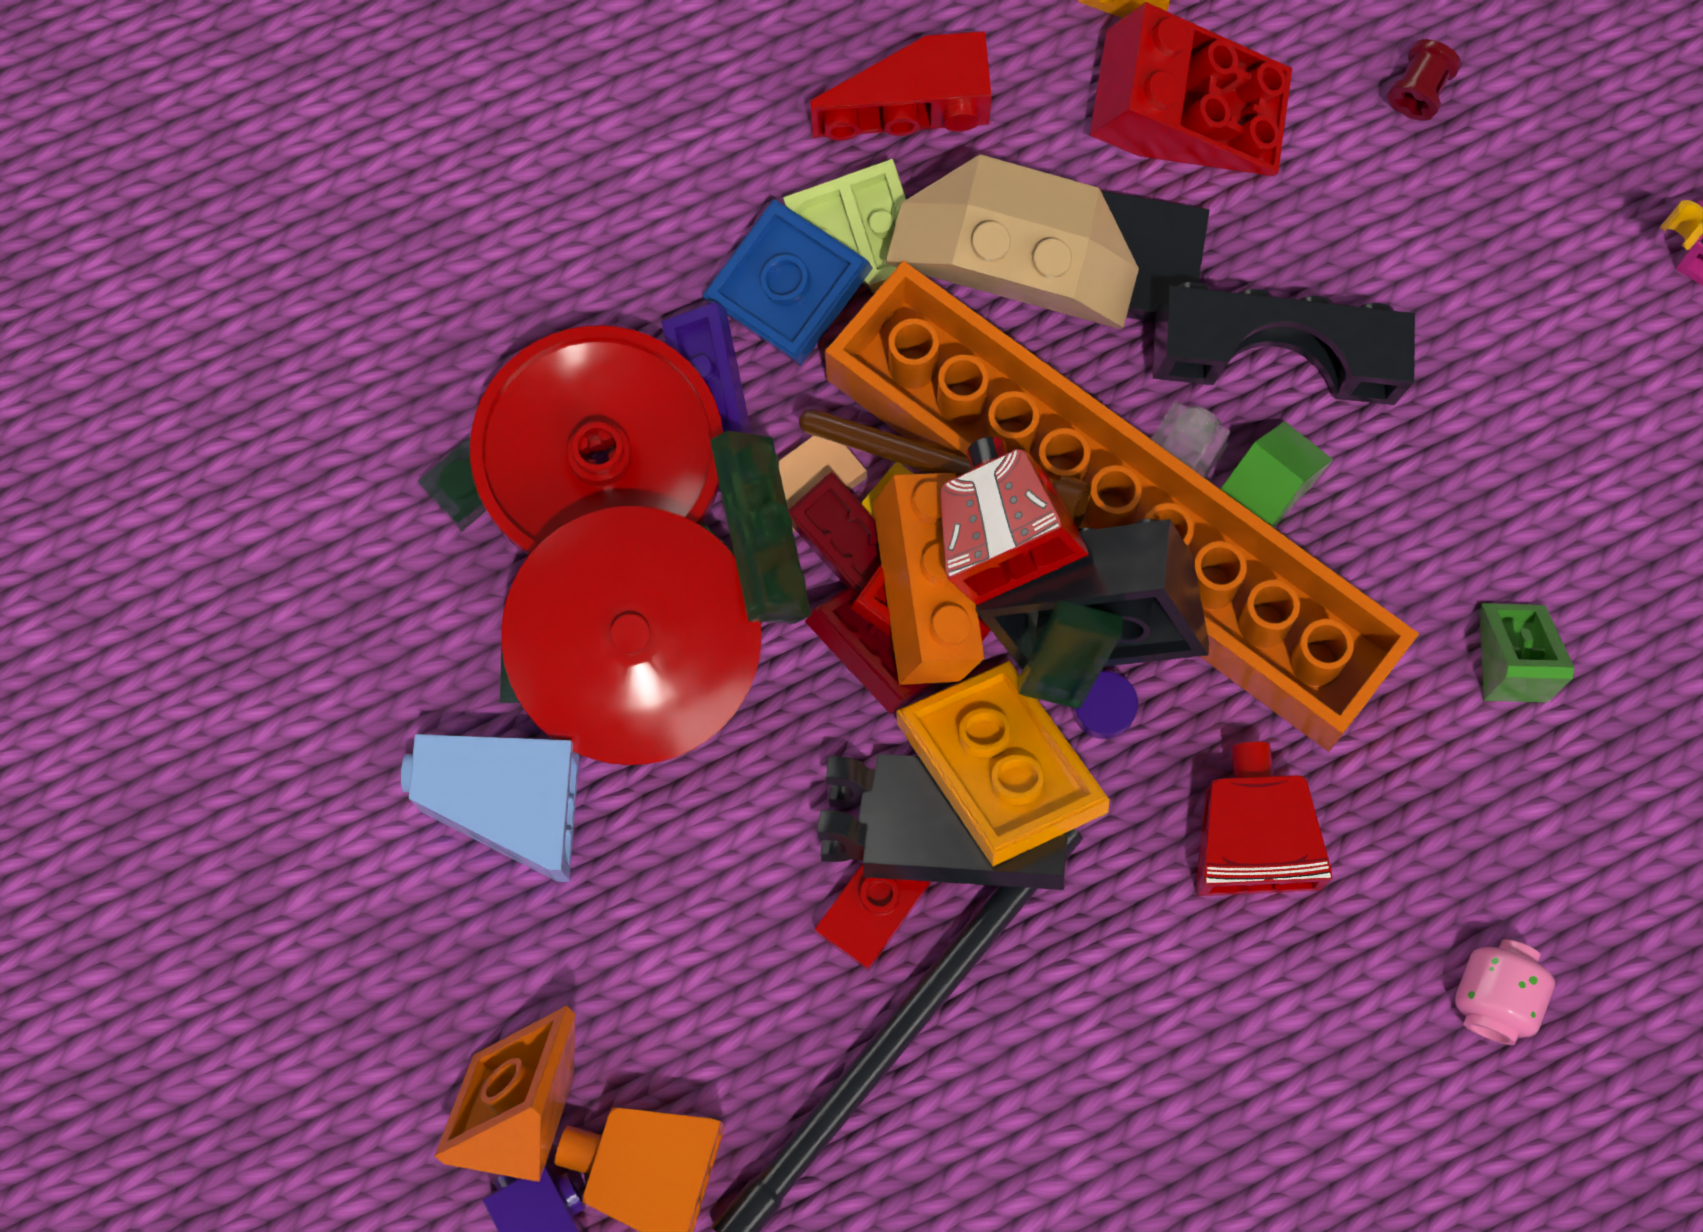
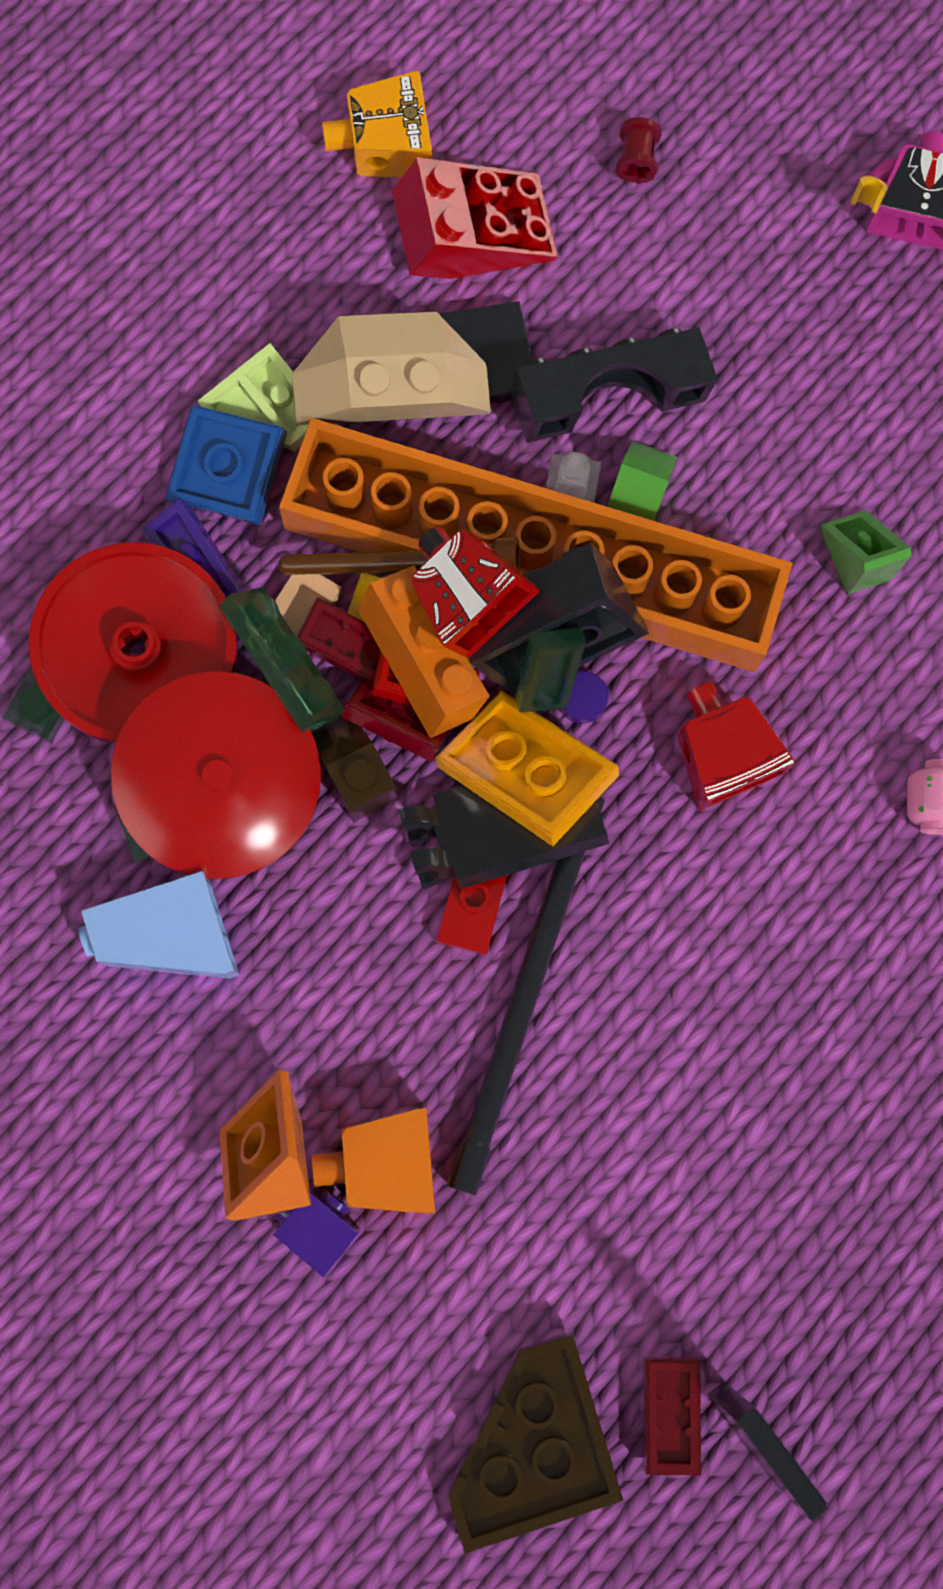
camera: 30 degrees left, 5 degrees up
(796, 688) = (354, 768): none -> dark brown slope
(920, 87) = (270, 279): red slope -> none

